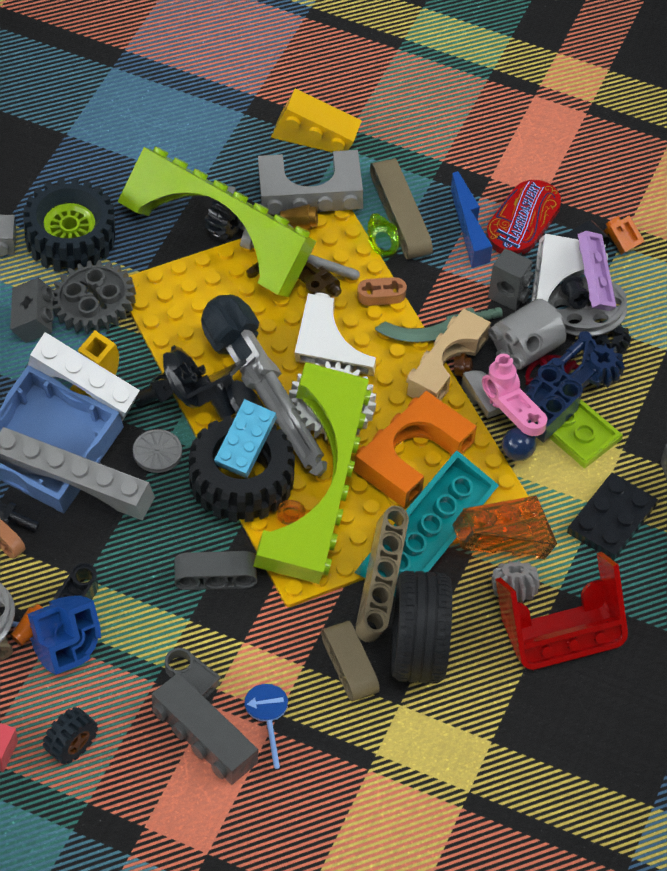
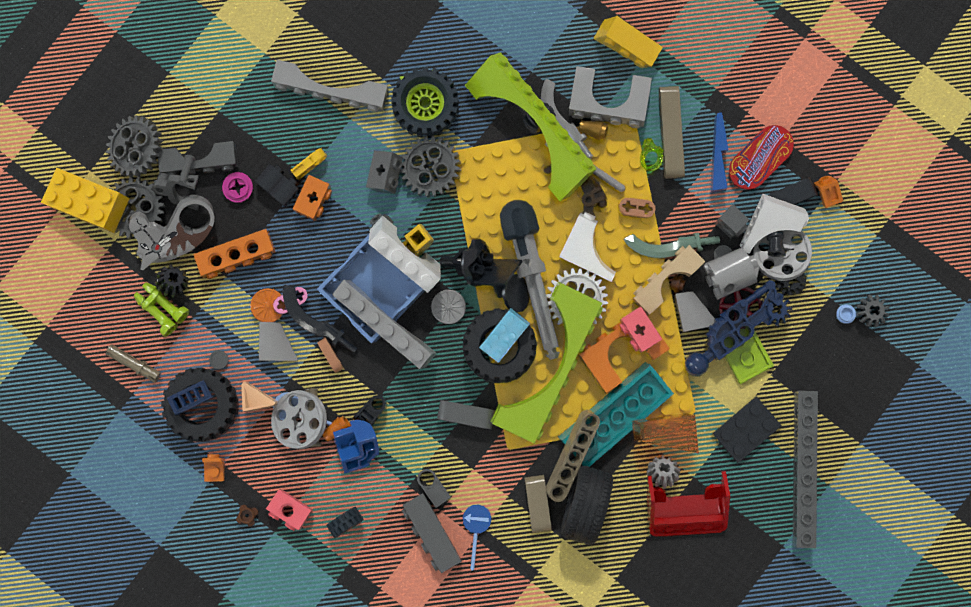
camera: 20 degrees right, 30 degrees up
(290, 511) = (526, 384): clear orange tile -> none
(430, 405) = (640, 319): none -> coral brick
(504, 391) = (702, 339): bright pink piece -> none
(597, 270) = (794, 238): lavender plate -> none

